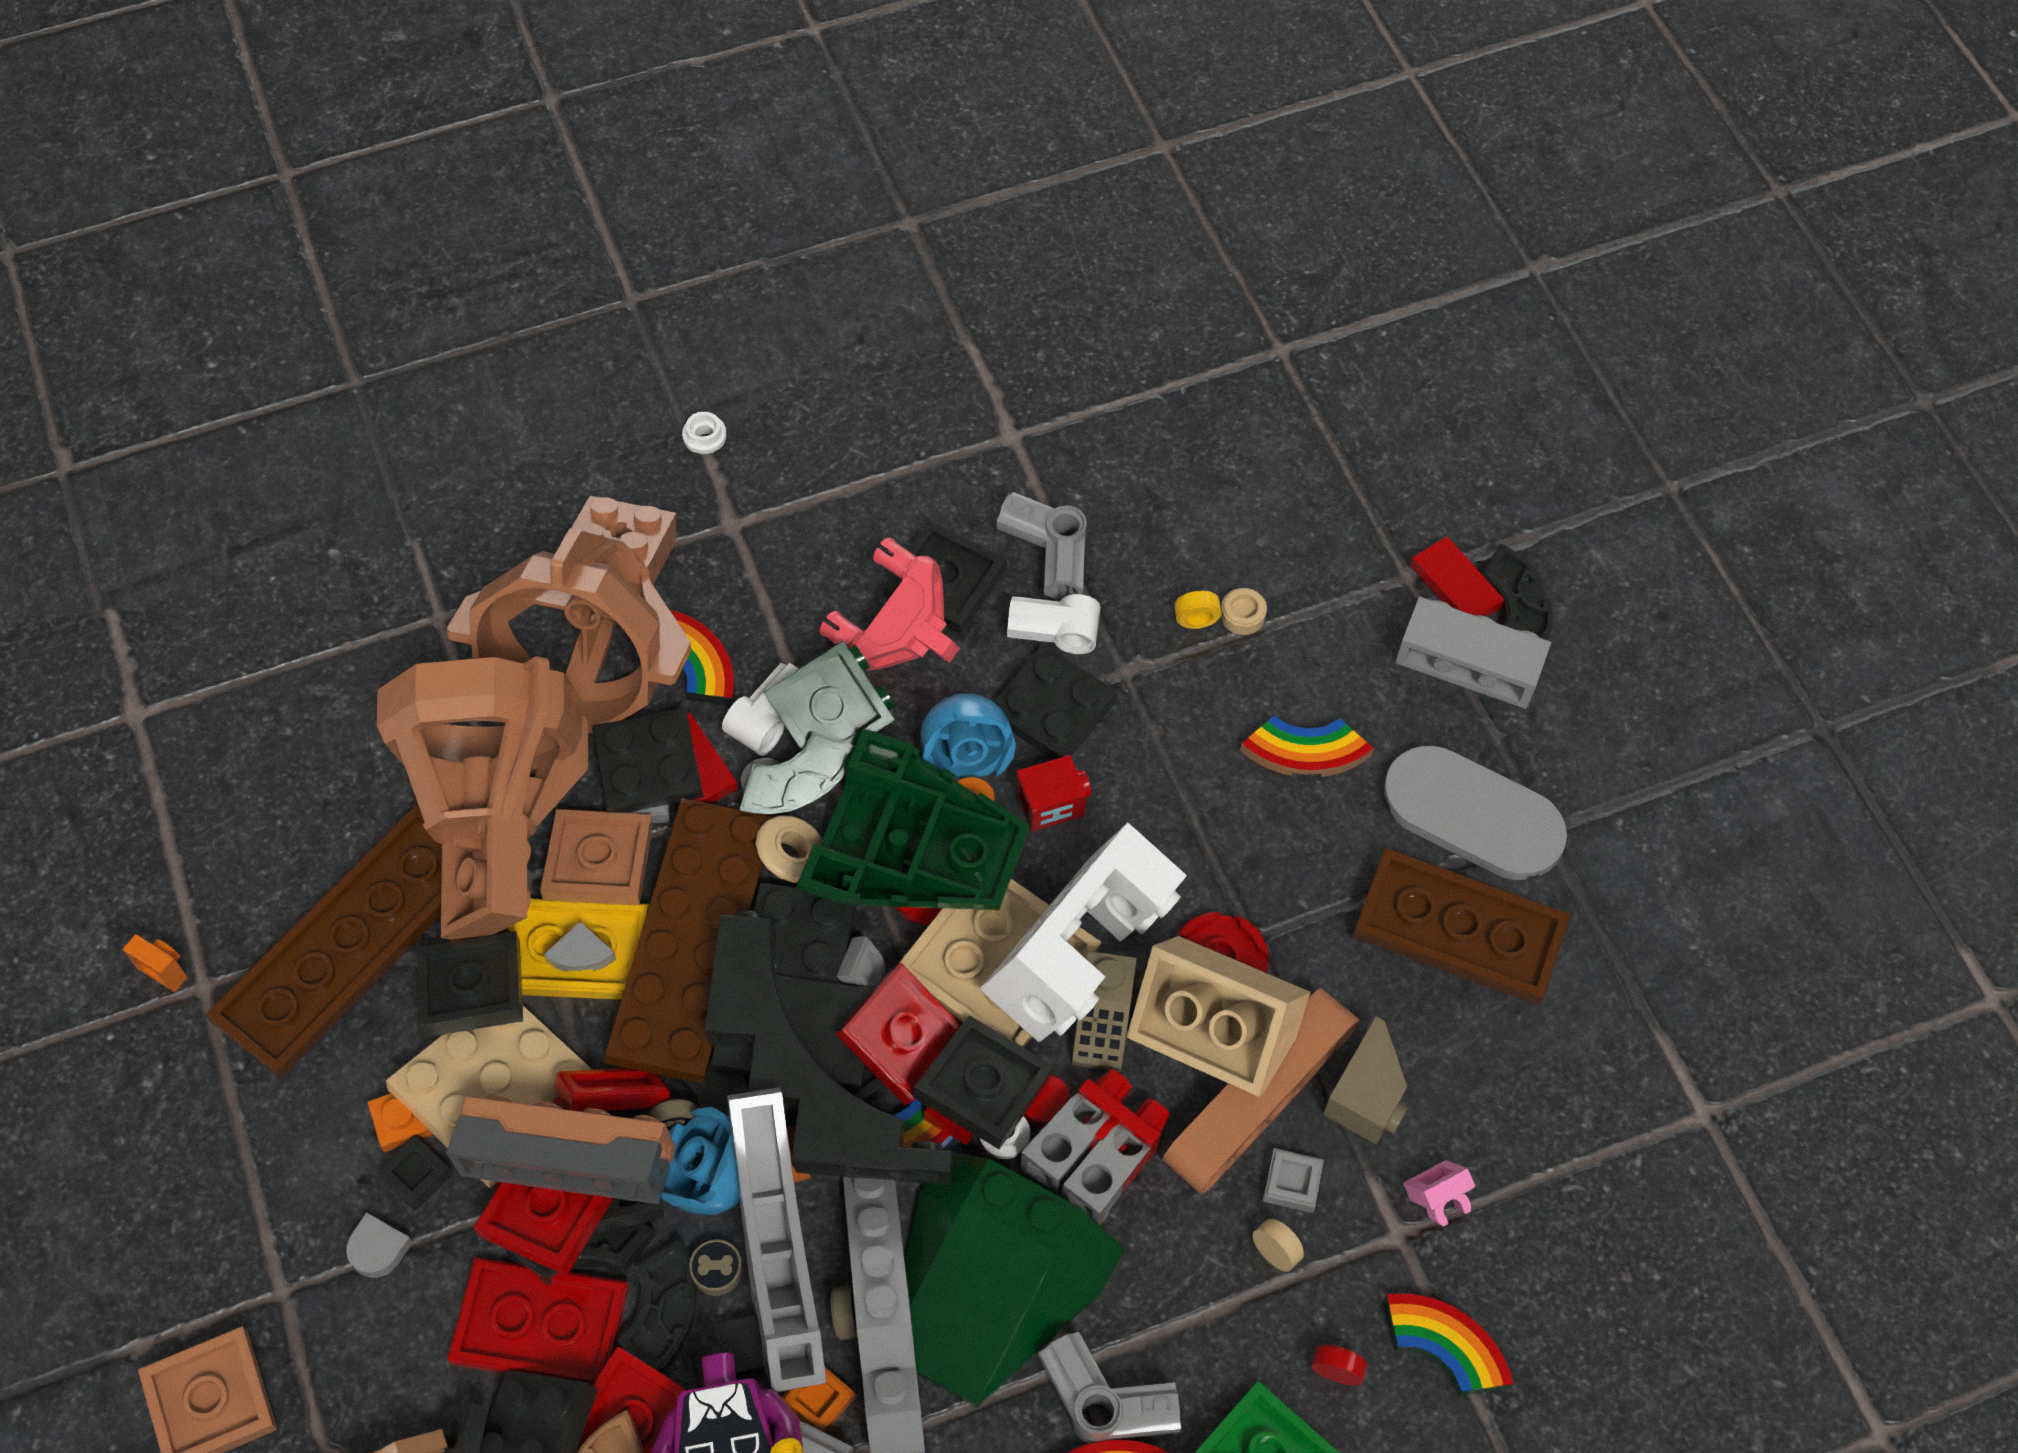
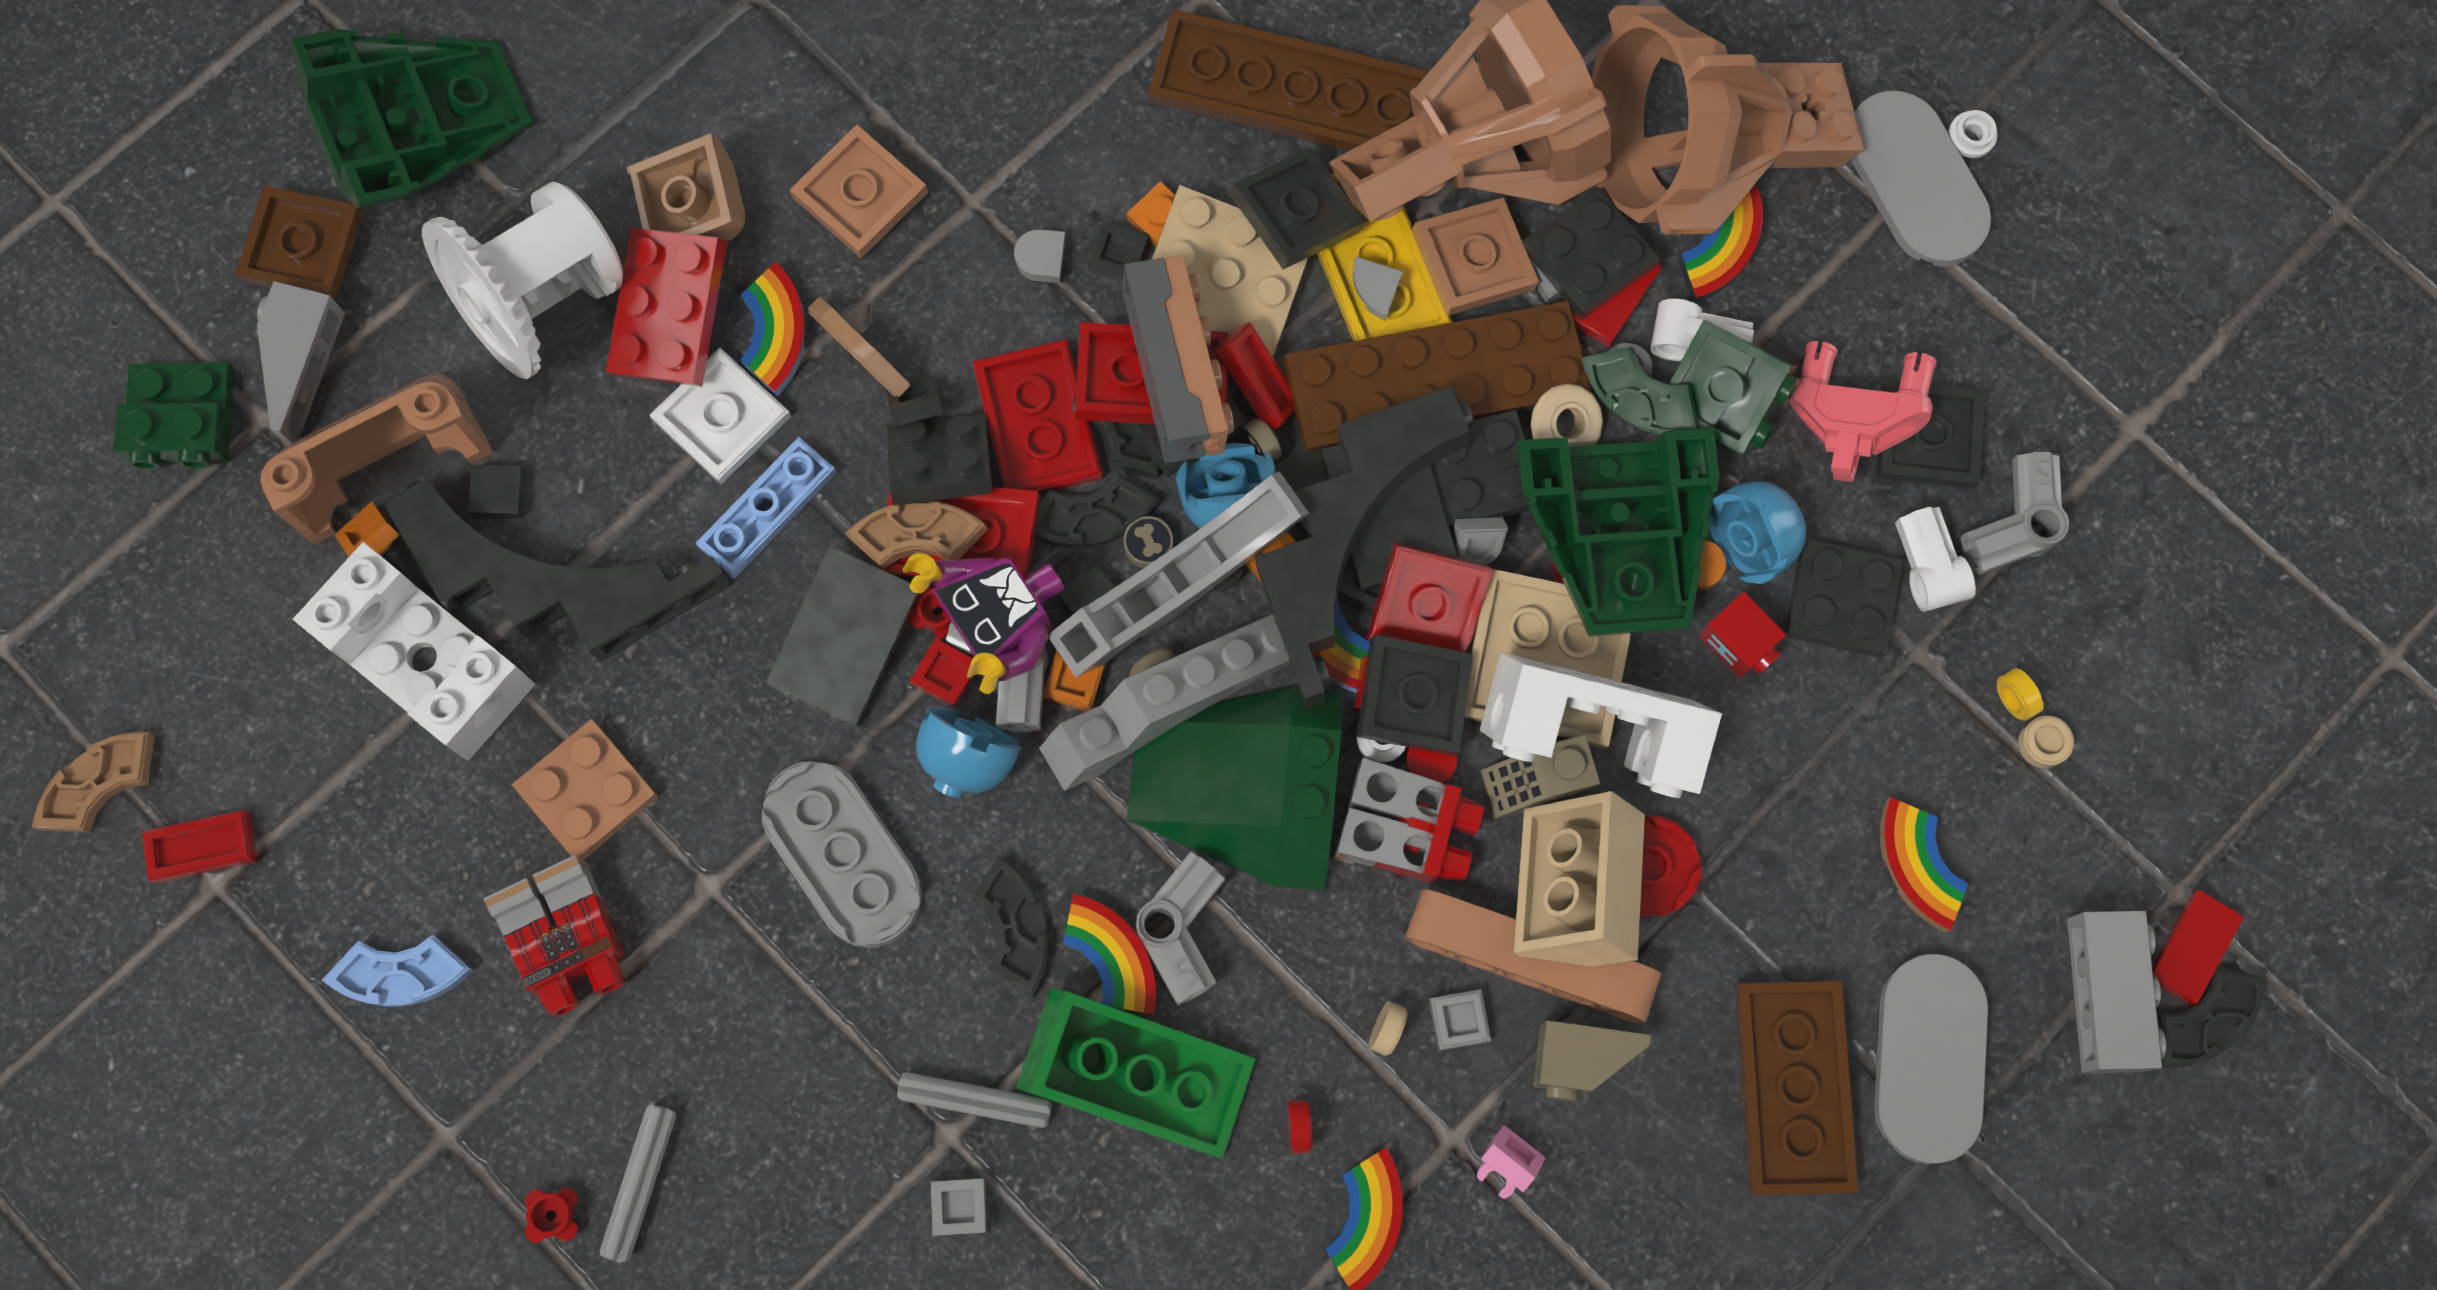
camera: 65 degrees right, 15 degrees up
(722, 488) = (1919, 179): none -> light grey tile

